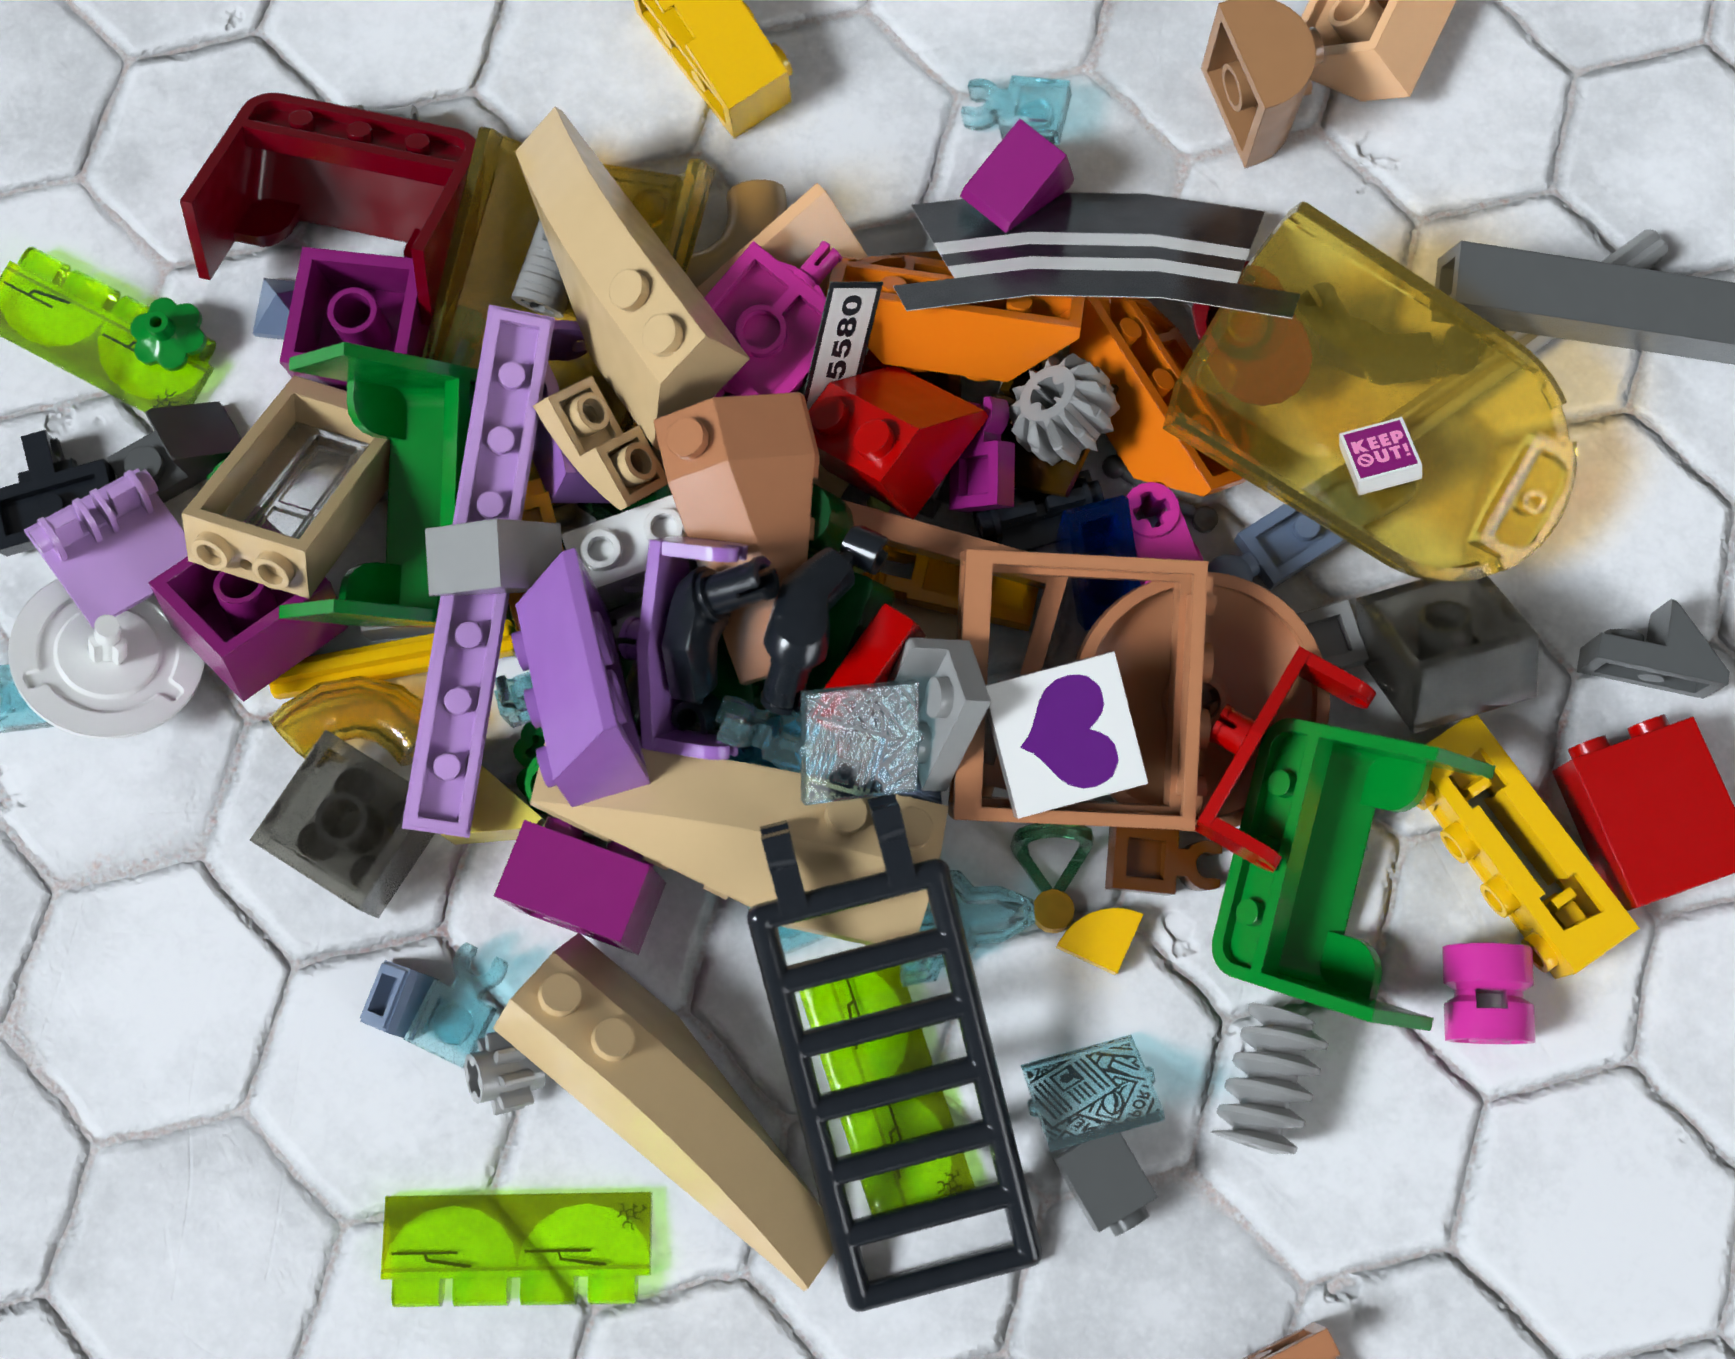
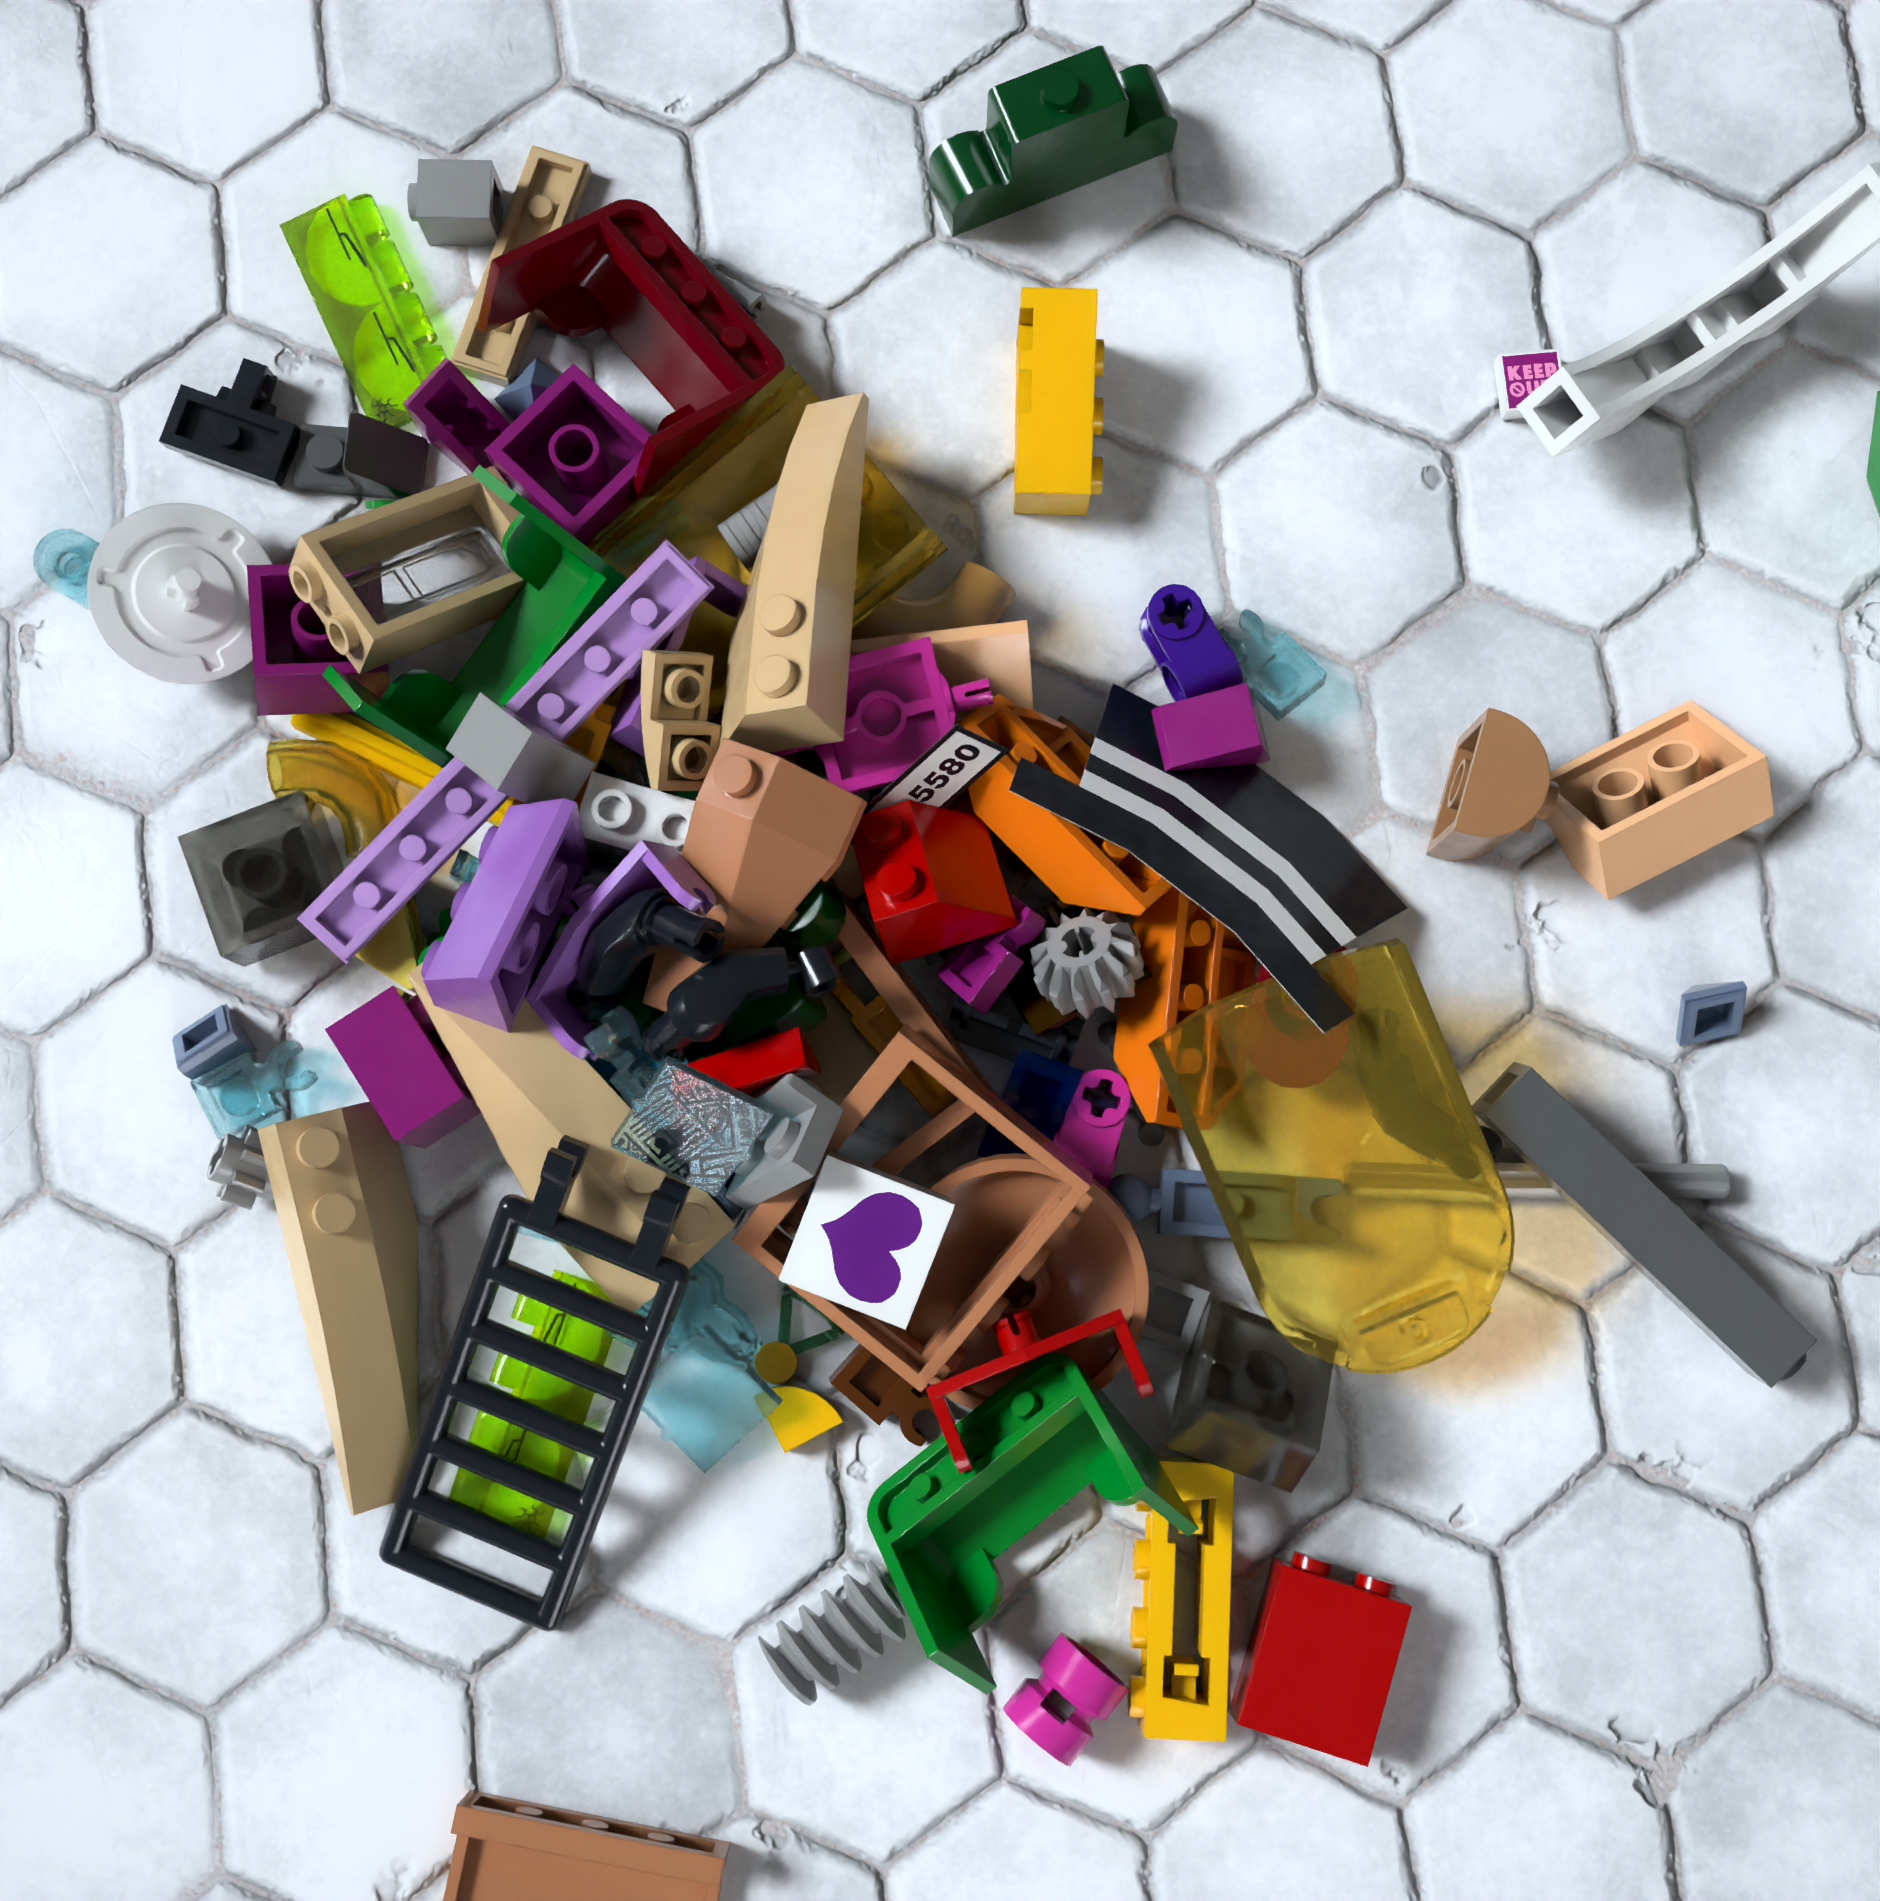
camera: 30 degrees right, 5 degrees up
(110, 202) = (457, 202): none -> light grey brick
(110, 544) = (245, 506): lavender hinge -> none
(168, 334) = (417, 360): green plant -> none
(177, 151) = (543, 201): none -> tan tile
(234, 362) = (455, 417): none -> magenta slope
(521, 1236) = (156, 1293): clear neon green windscreen -> none
(951, 137) = (1192, 656): none -> dark purple piece
(1026, 973) = (707, 1398): none -> clear light blue piece
(1092, 1093) = (688, 1533): clear light blue piece -> none
(1107, 1183) = (647, 1610): dark grey brick -> none
(1380, 456) = (1321, 1197): tile -> none
(1547, 127) = (1710, 1012): none -> sand blue slope
(1670, 660) = (1443, 1542): dark grey slope -> none

